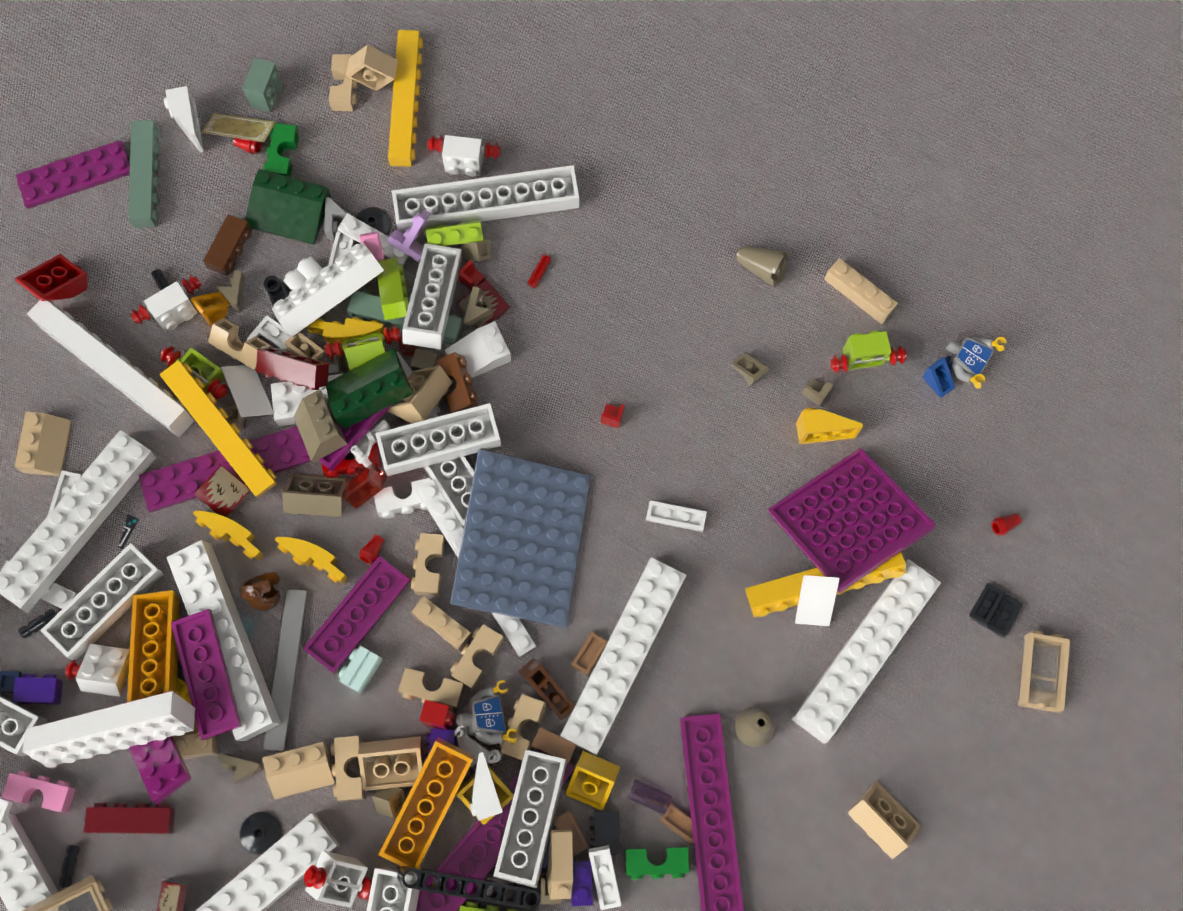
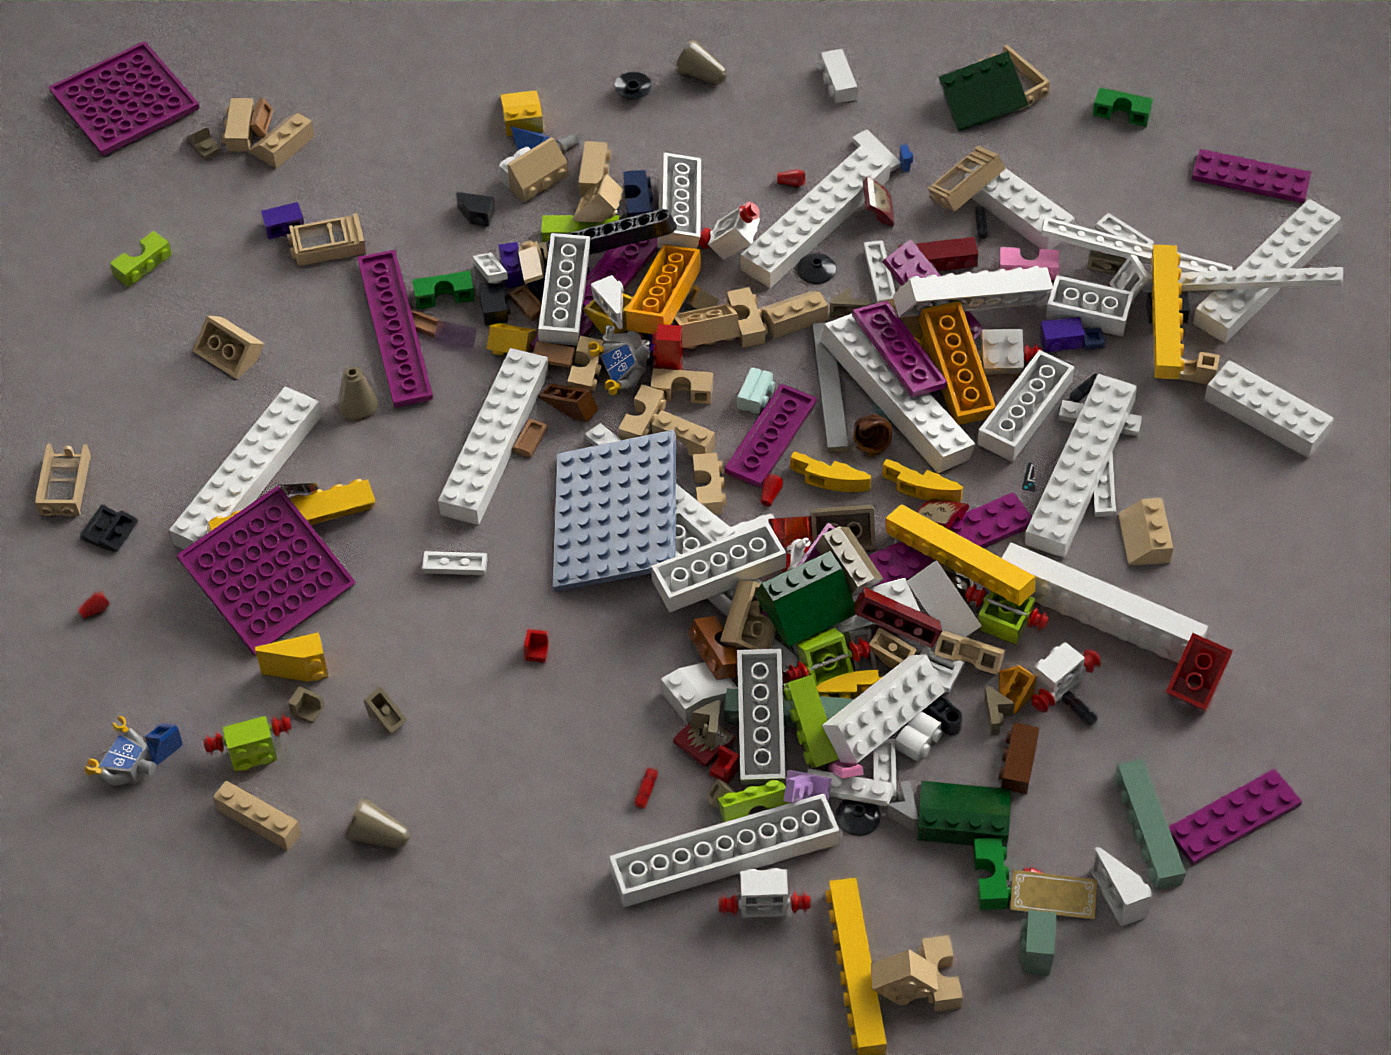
camera: 175 degrees right, 20 degrees down
(196, 809) = (879, 274): none -> white plate

